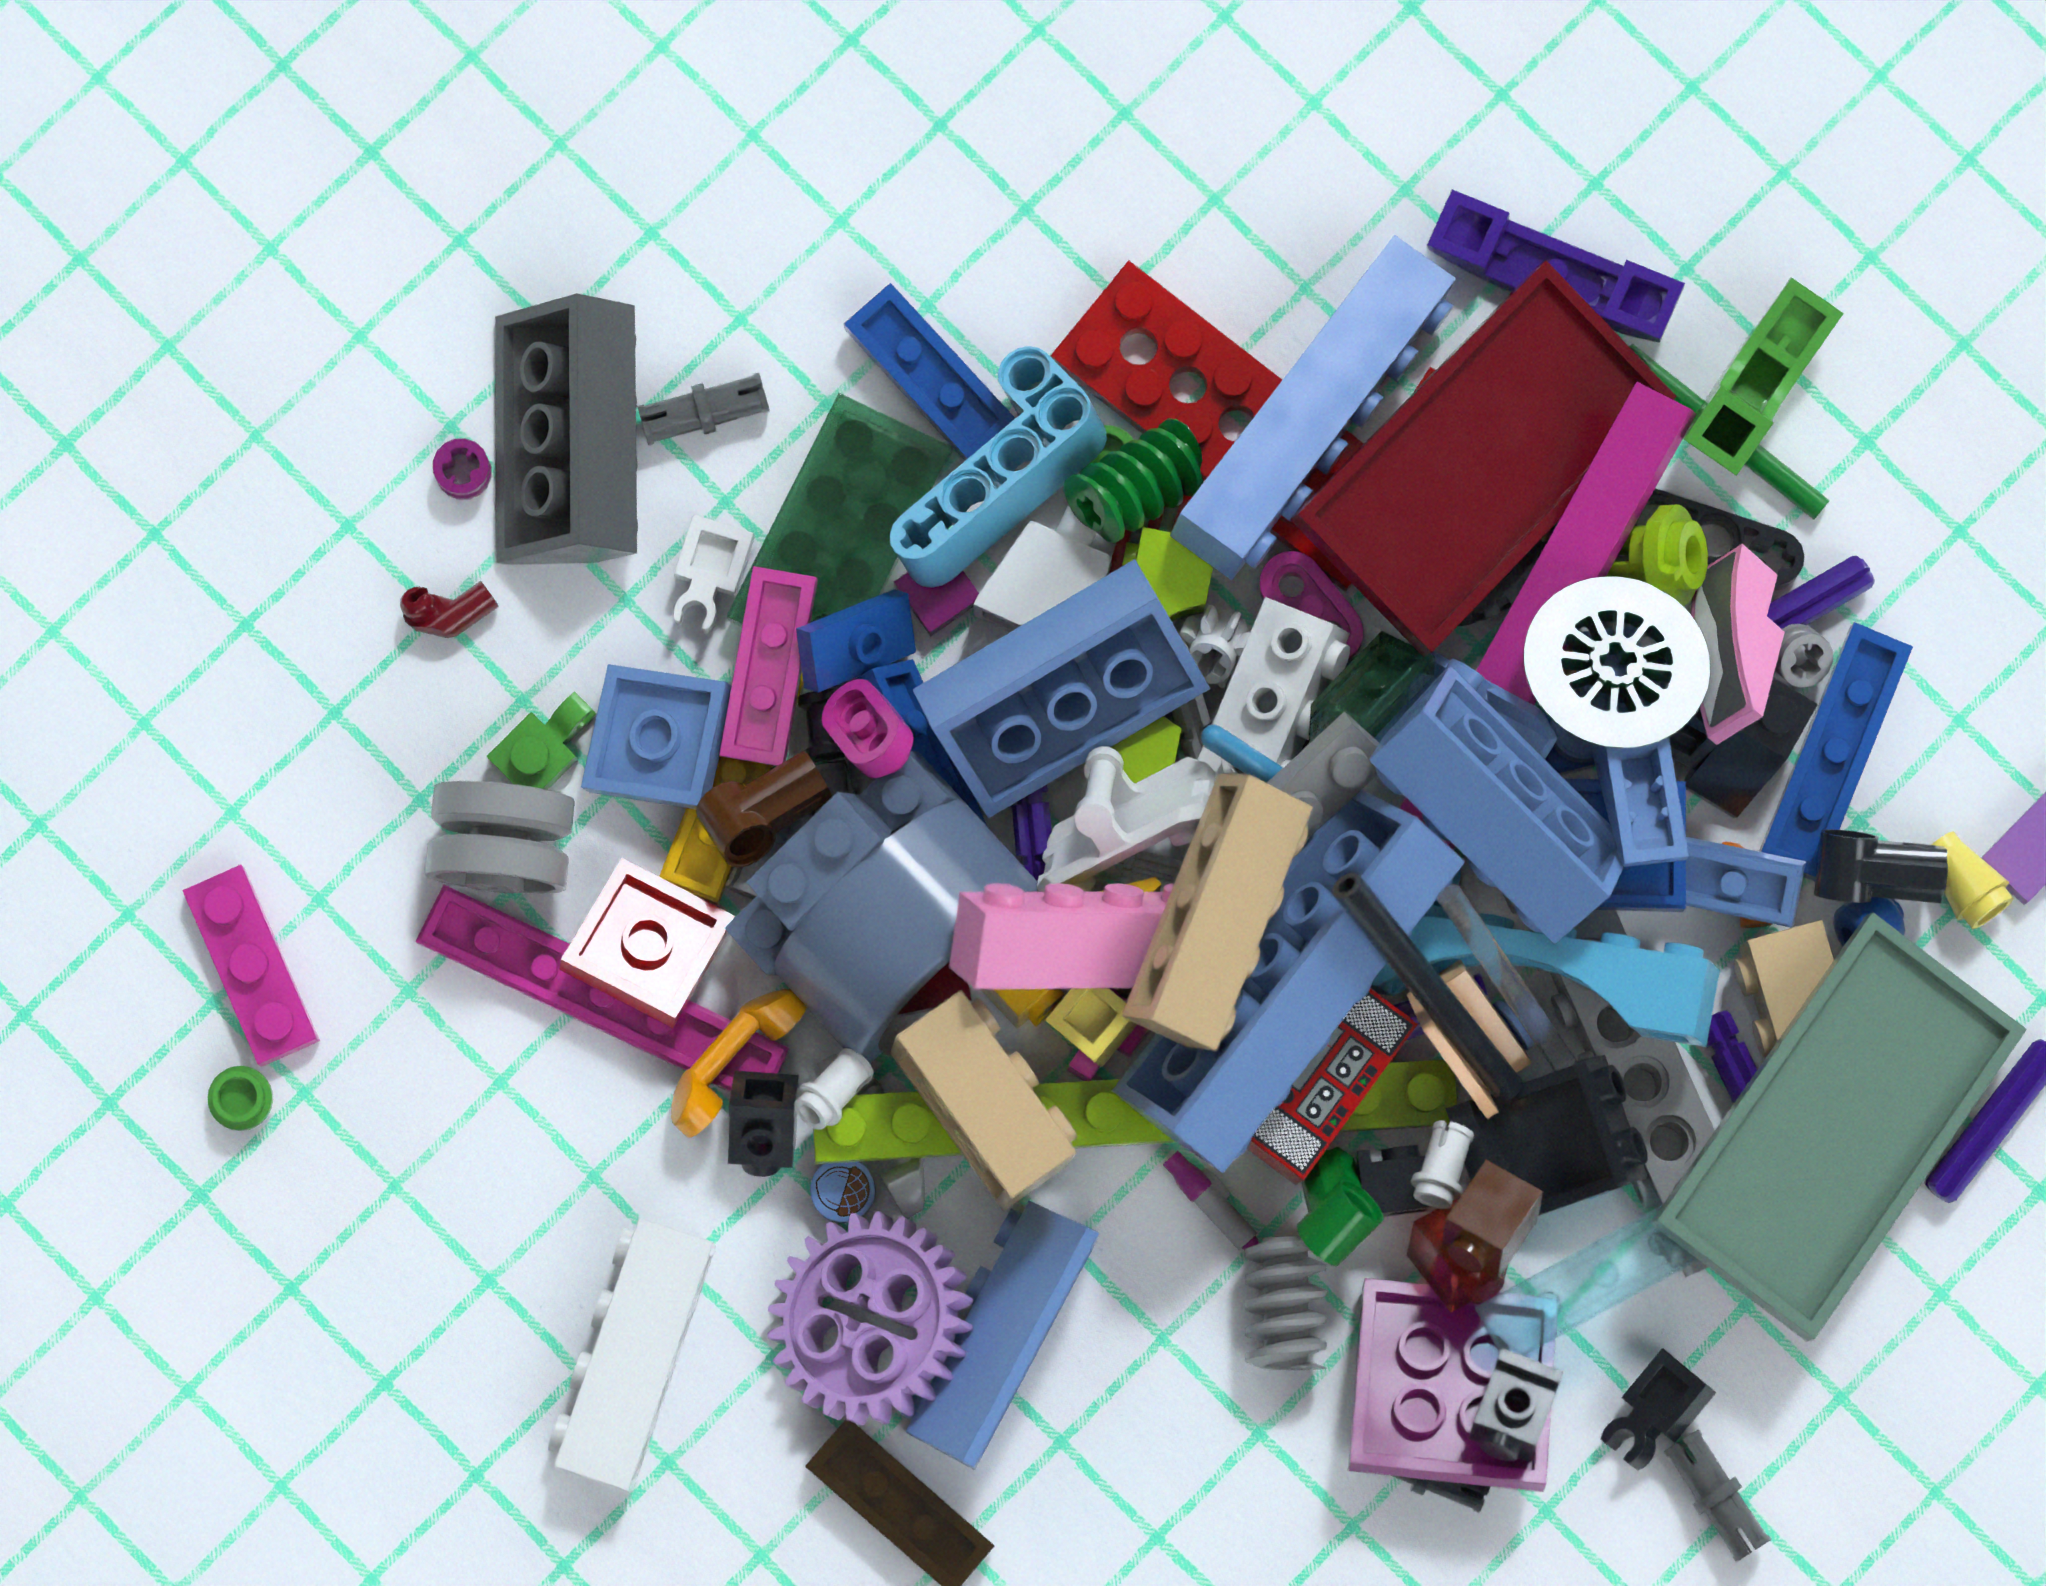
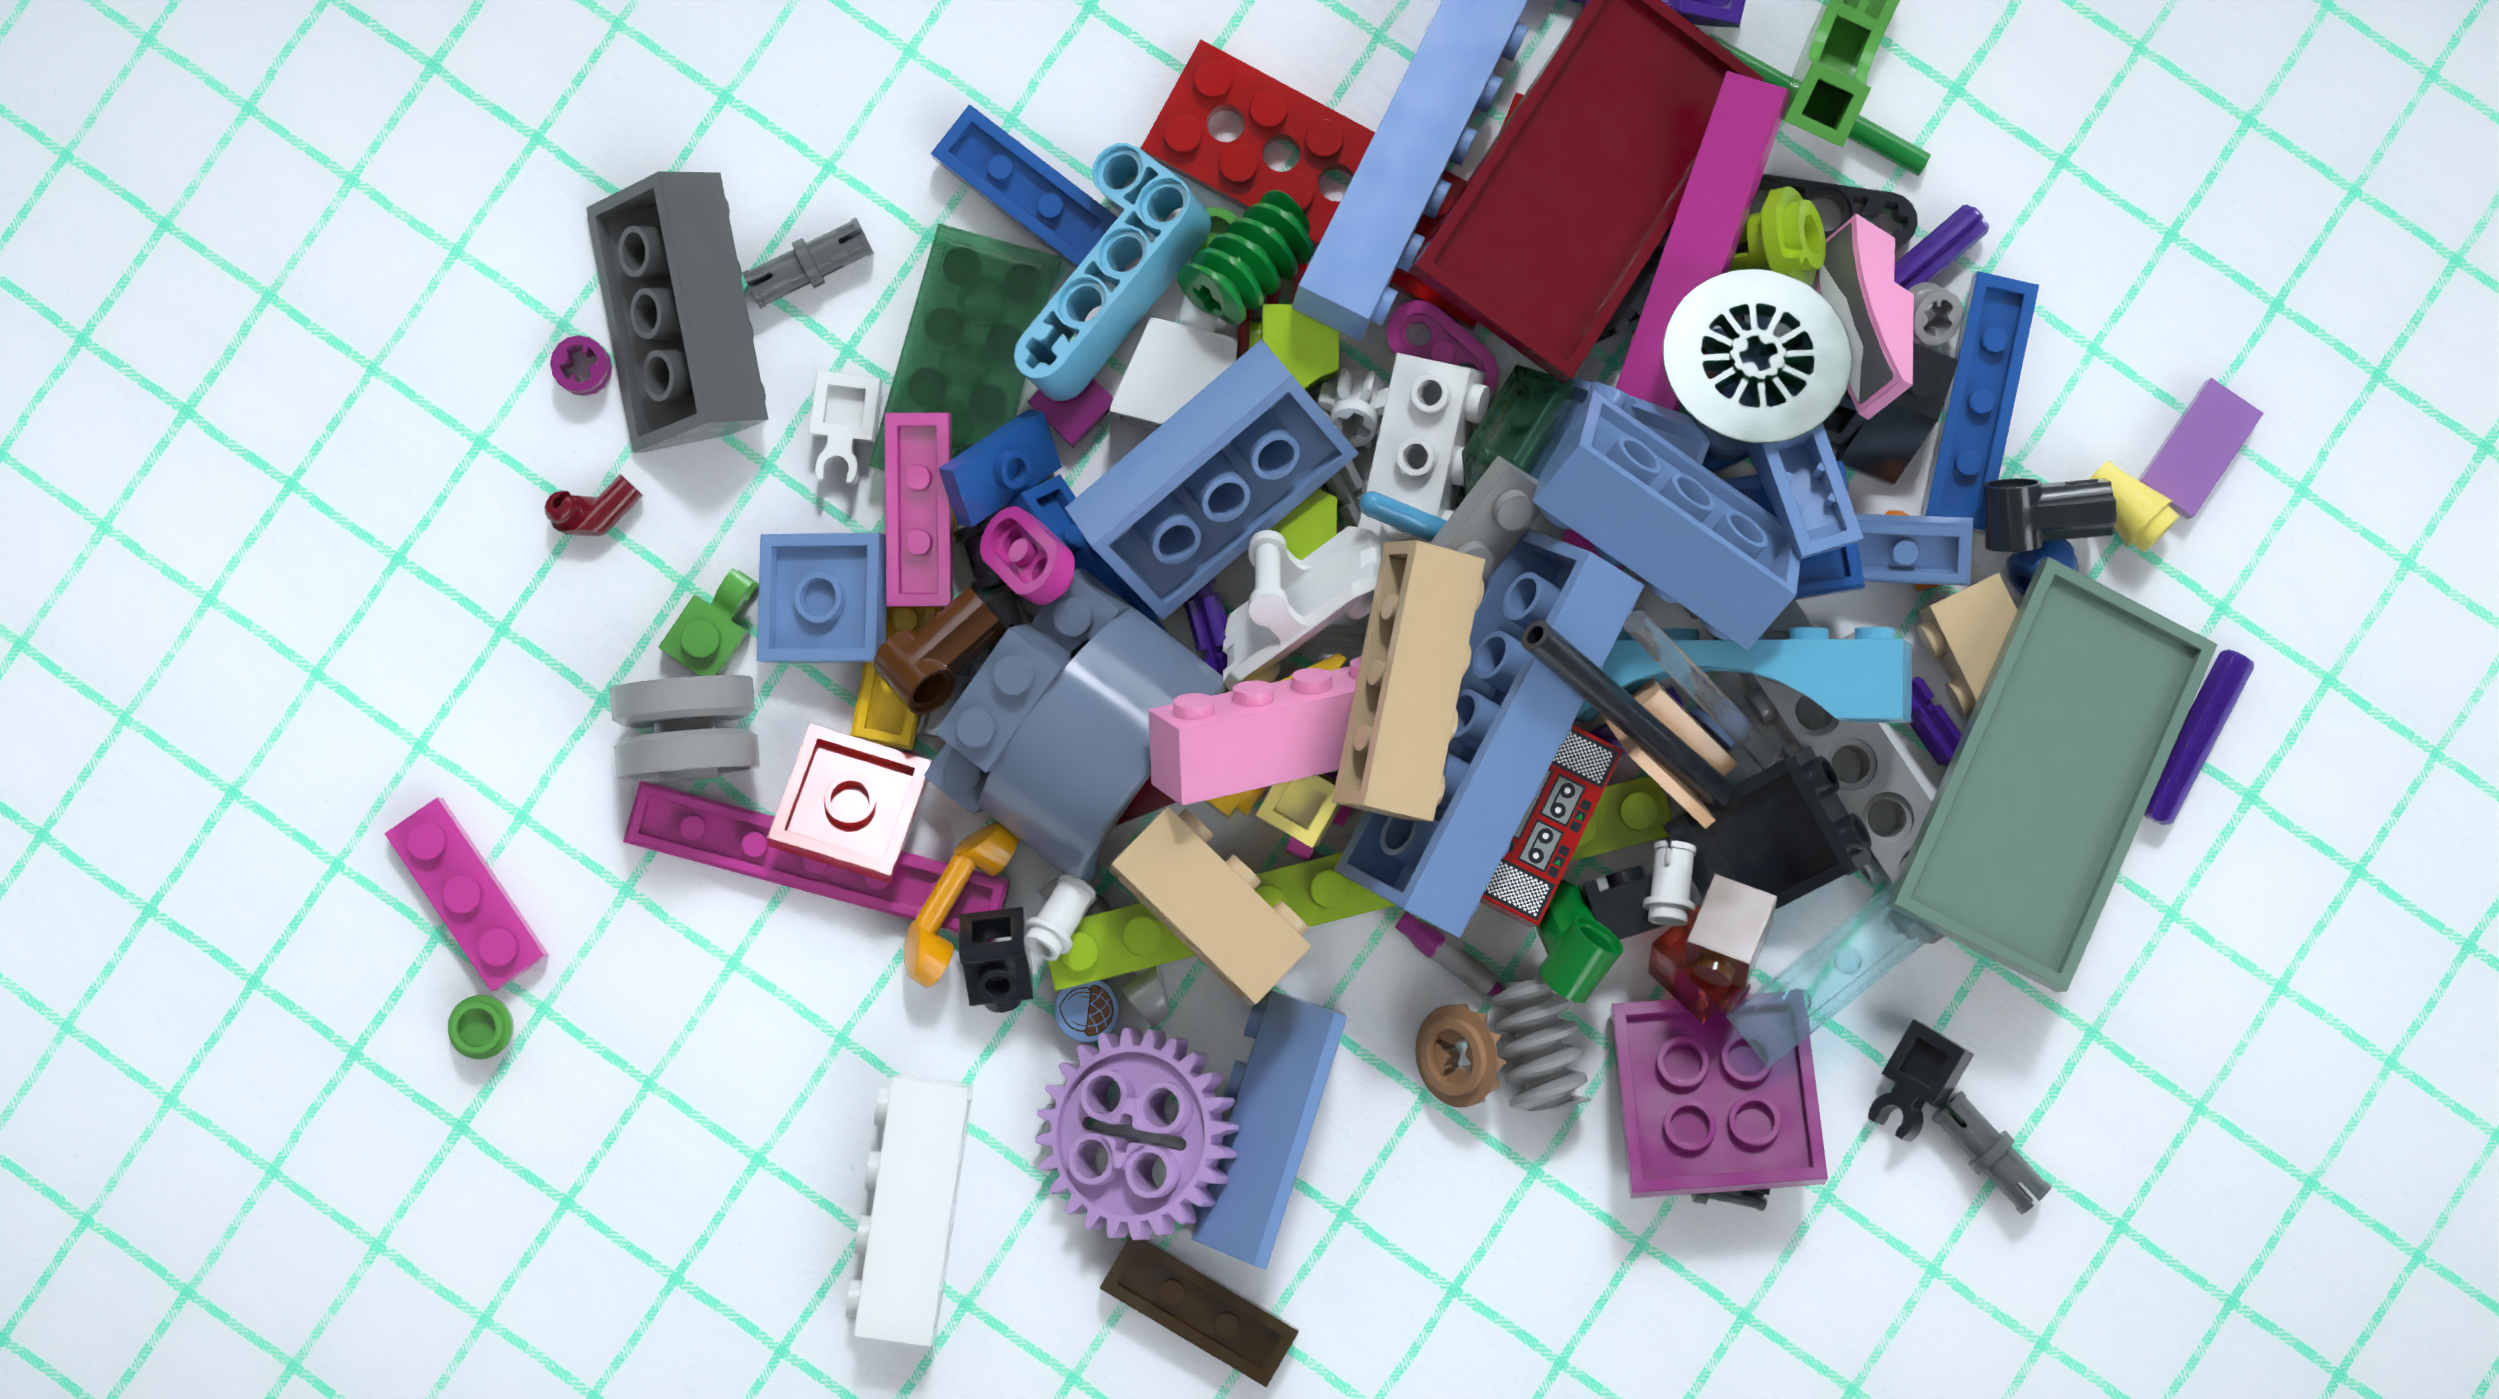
camera: 10 degrees left, 5 degrees up
(1184, 1303) = (1439, 1058): none -> medium nougat gear
(1524, 1383) = (1790, 1084): brick -> none

